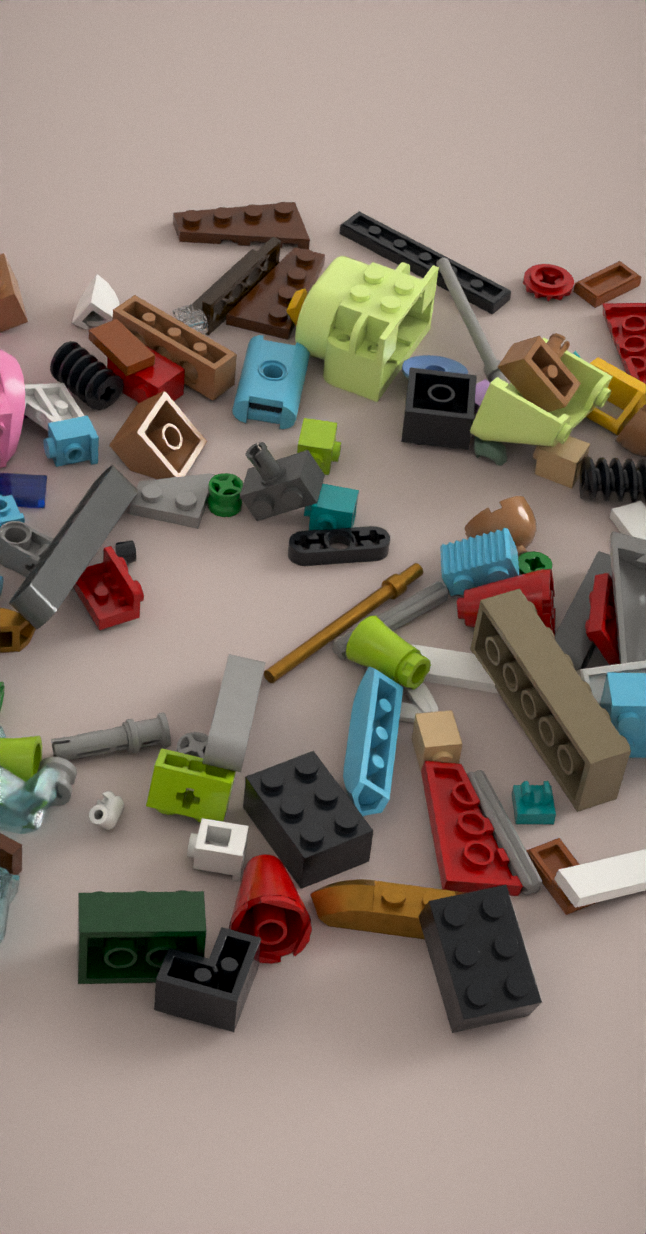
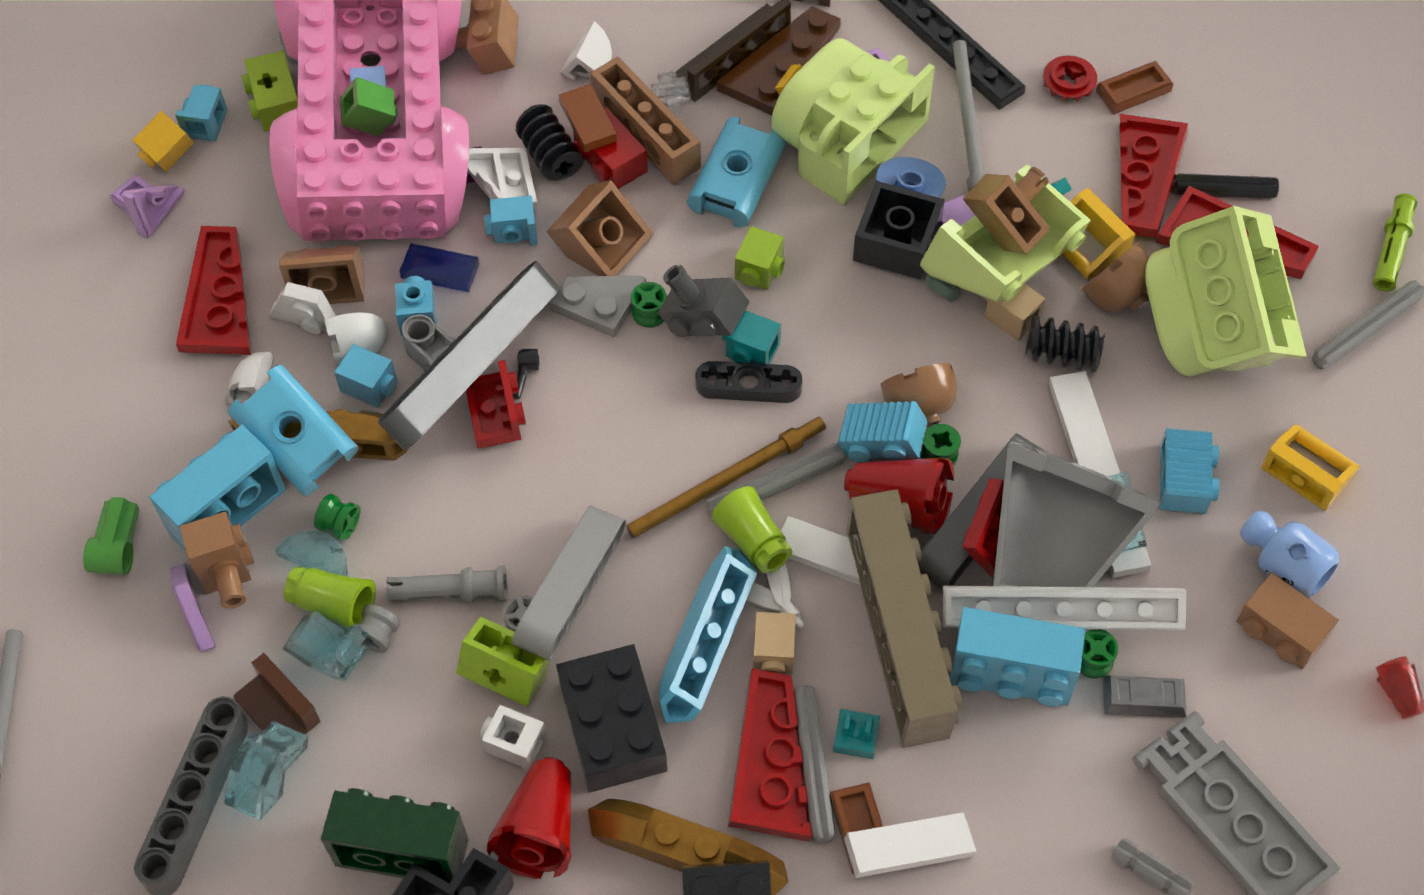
camera: 20 degrees right, 15 degrees up
(107, 811) = (416, 679): white arm -> none

